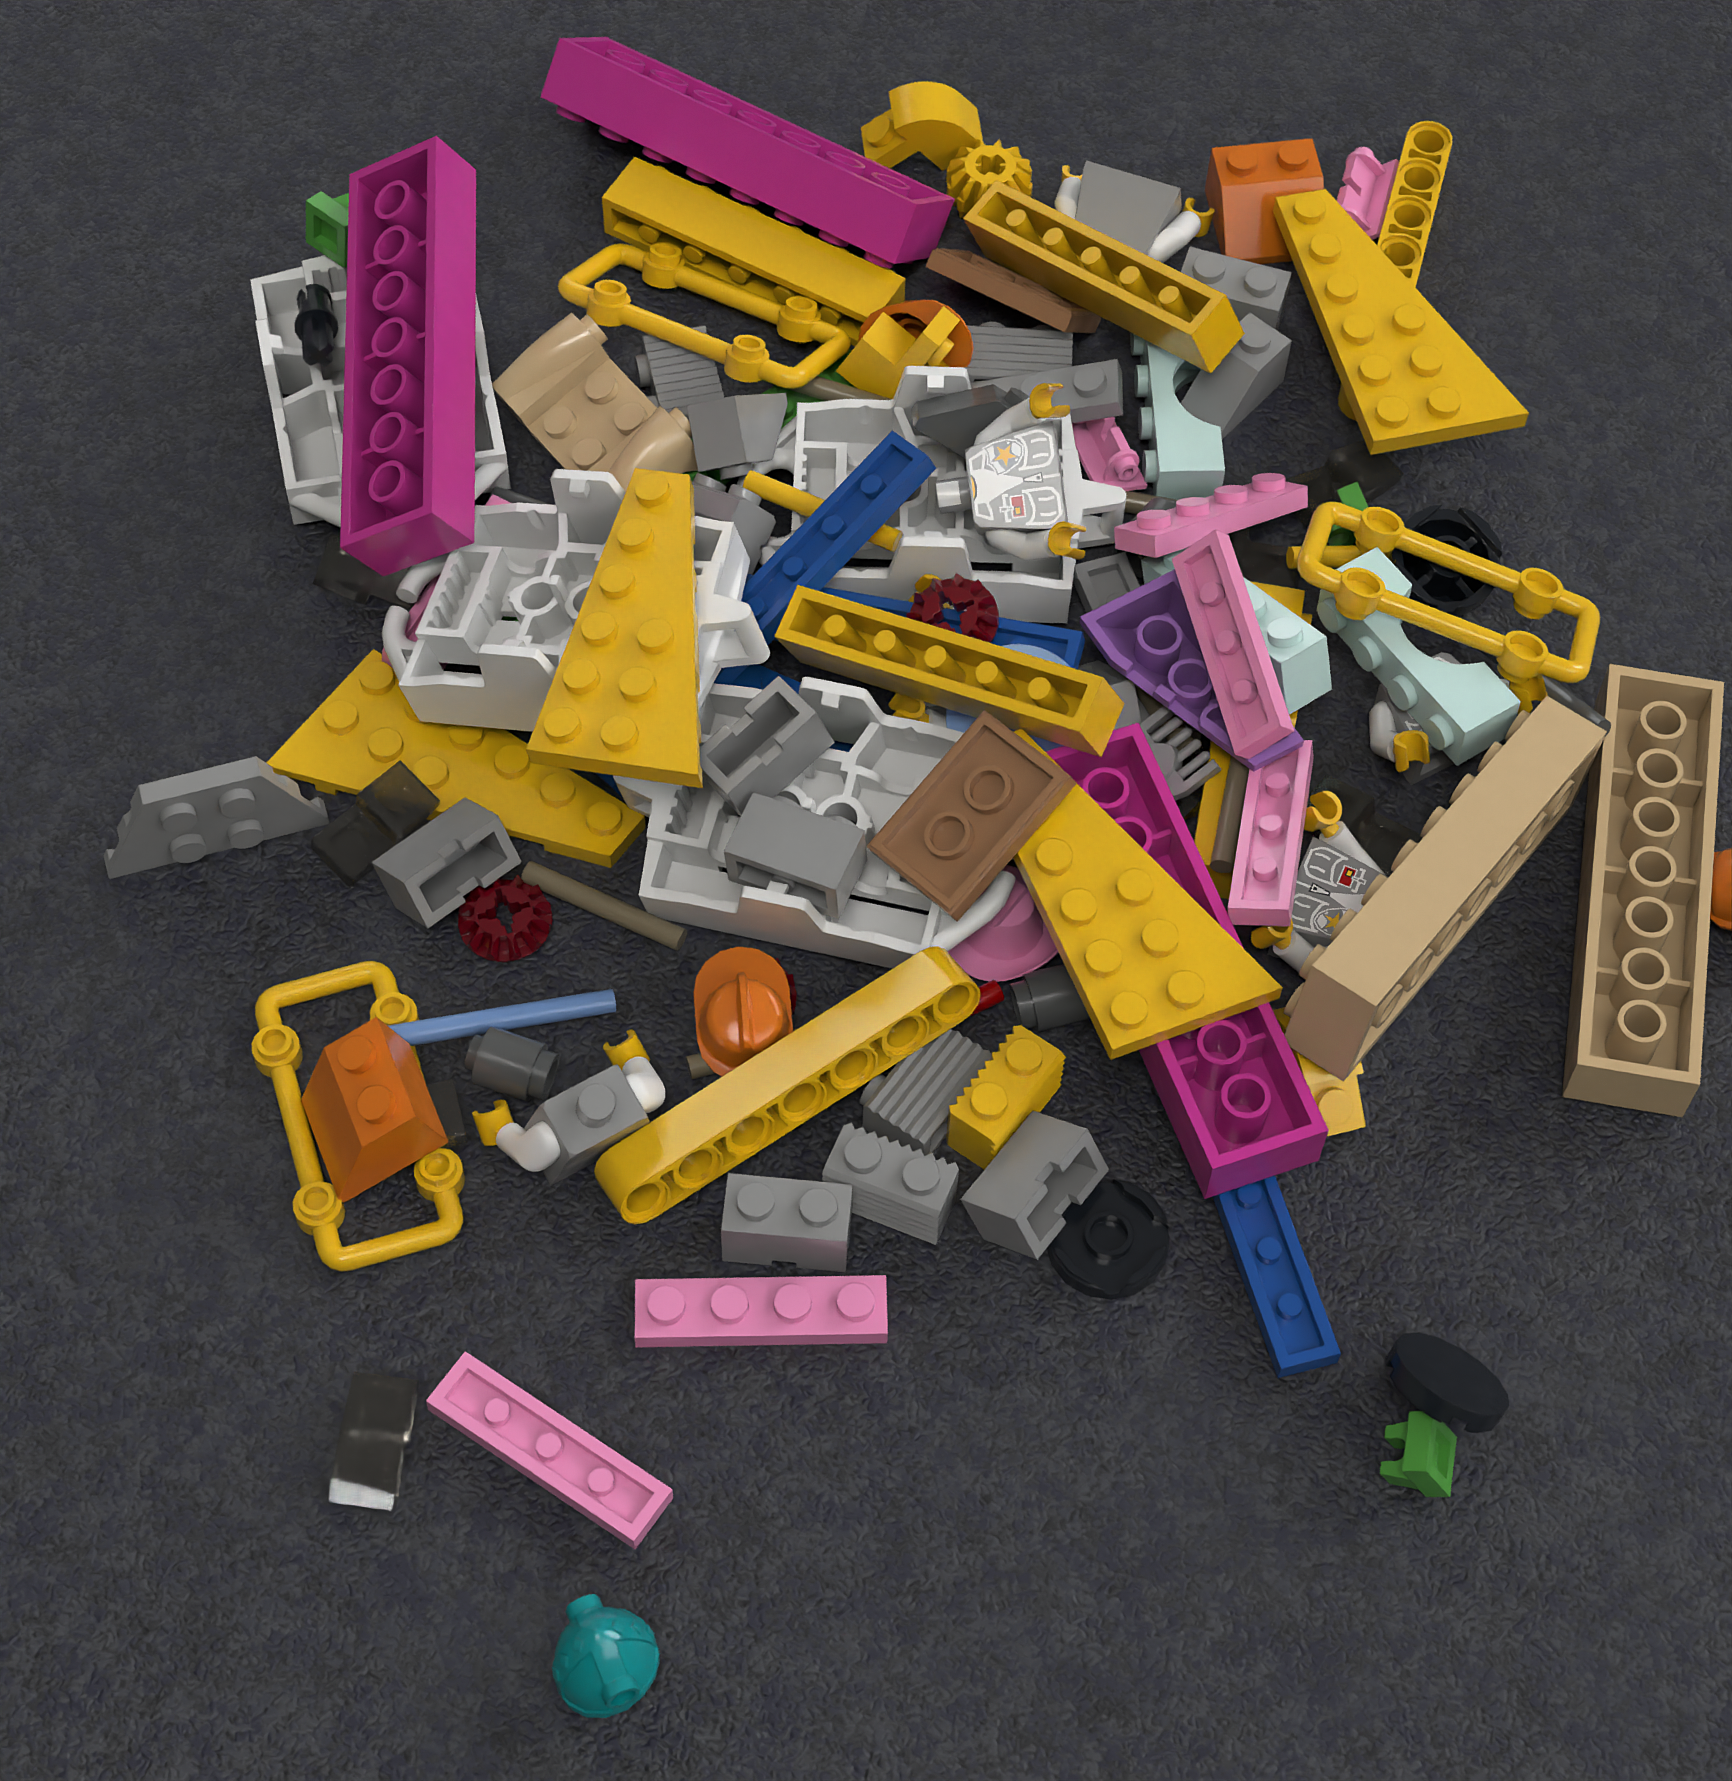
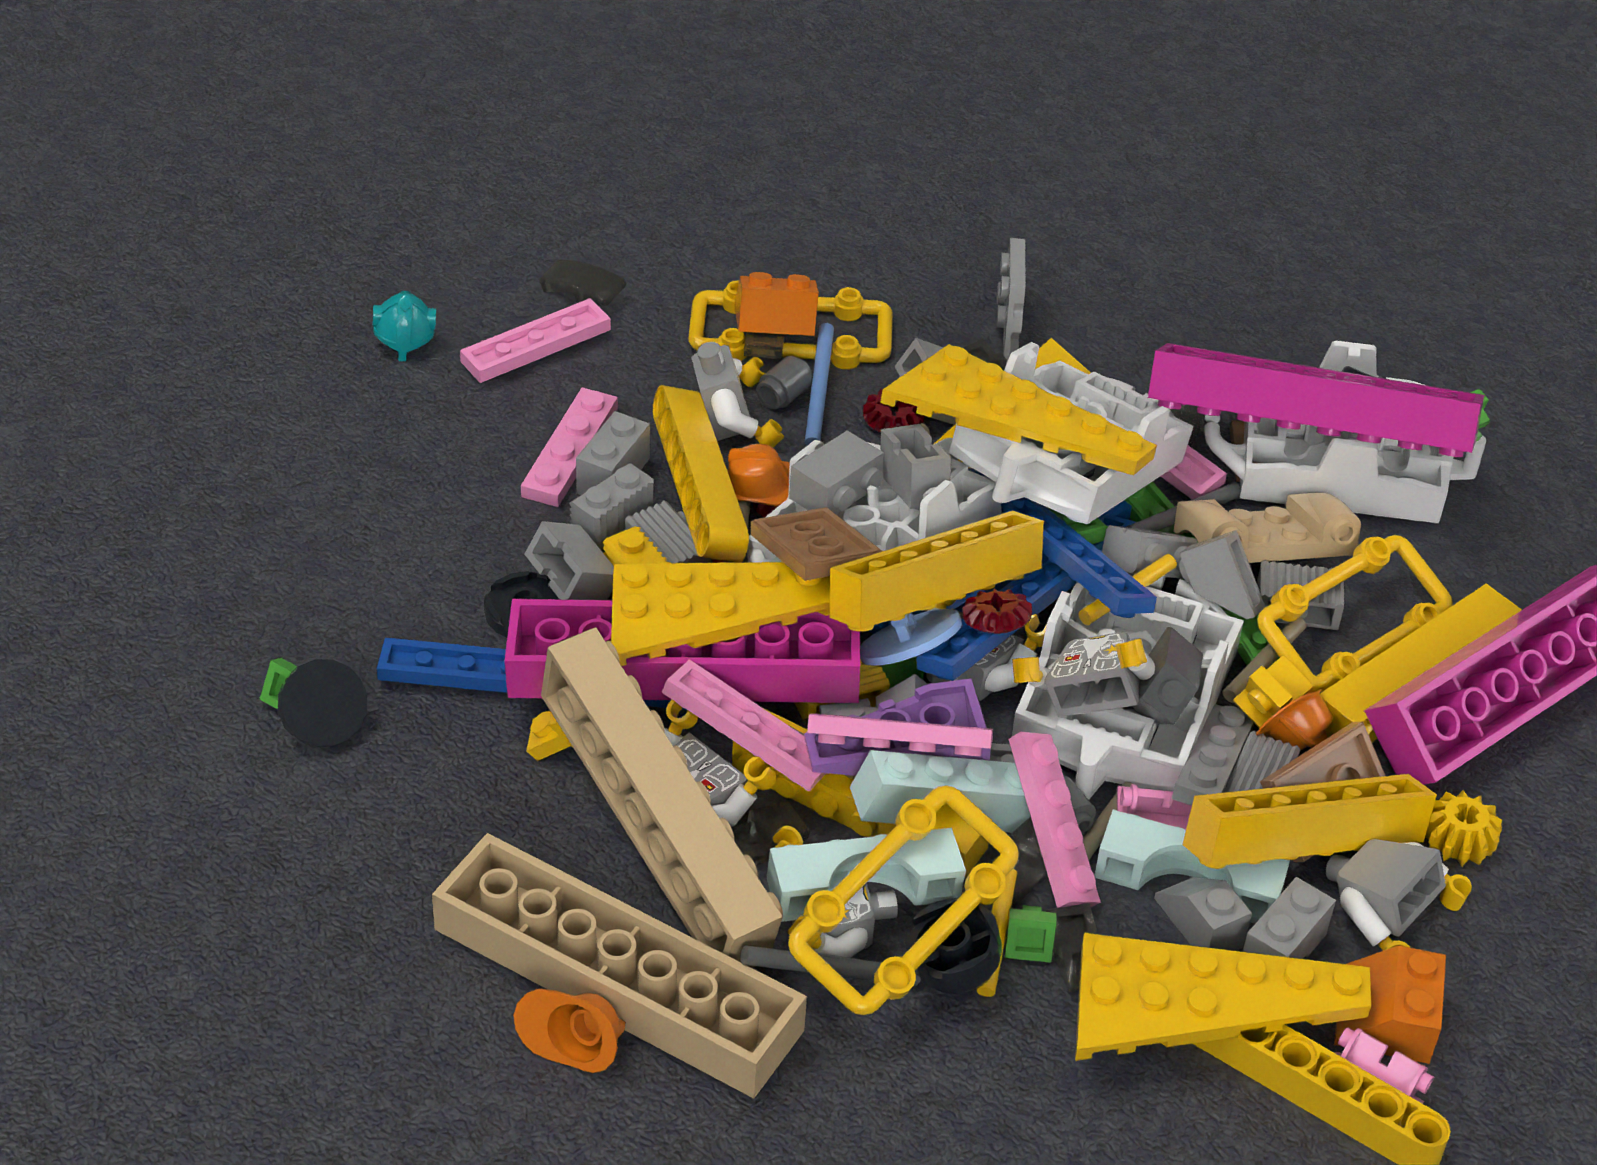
camera: 110 degrees right, 15 degrees down
(922, 119) = (1528, 798): yellow brick -> none

